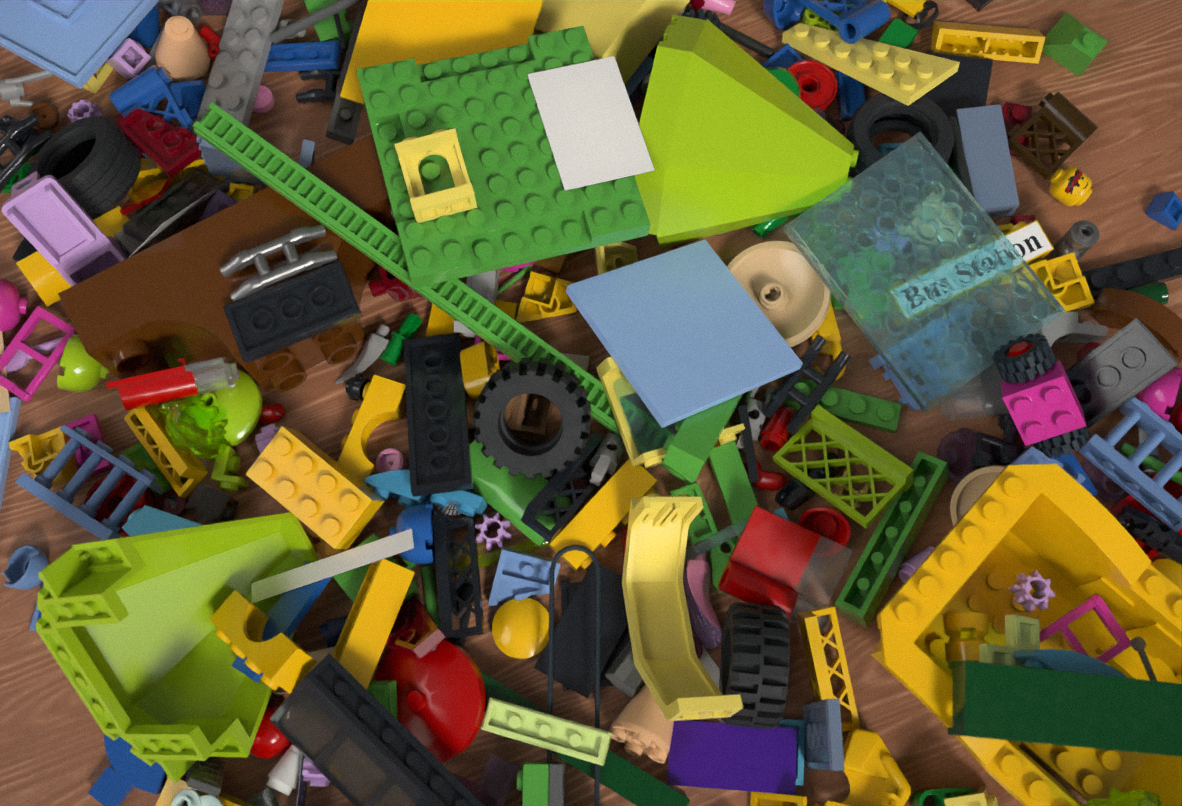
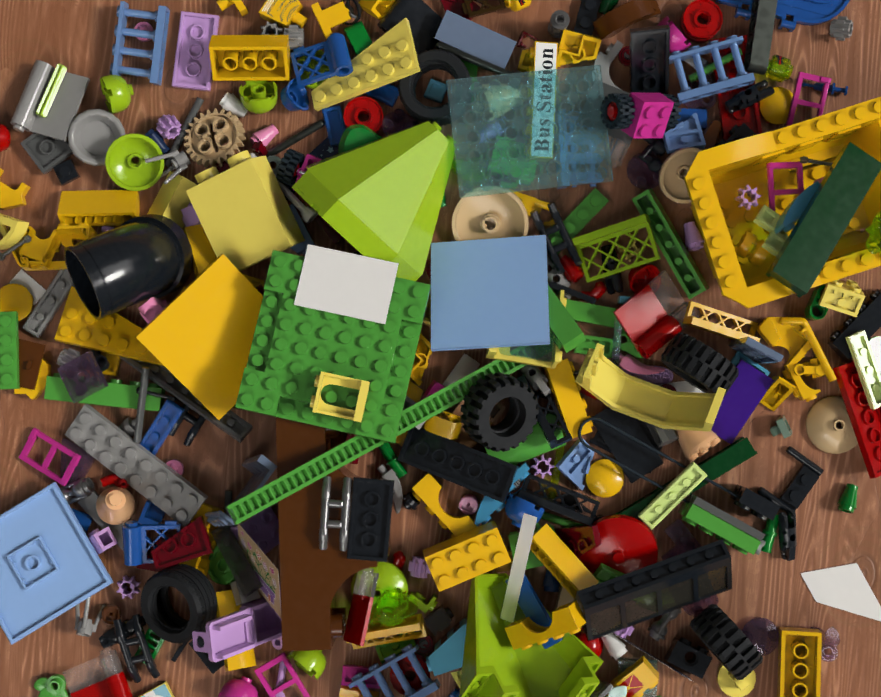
camera: 60 degrees left, 15 degrees up
(146, 195) = (216, 571): red piece -> none

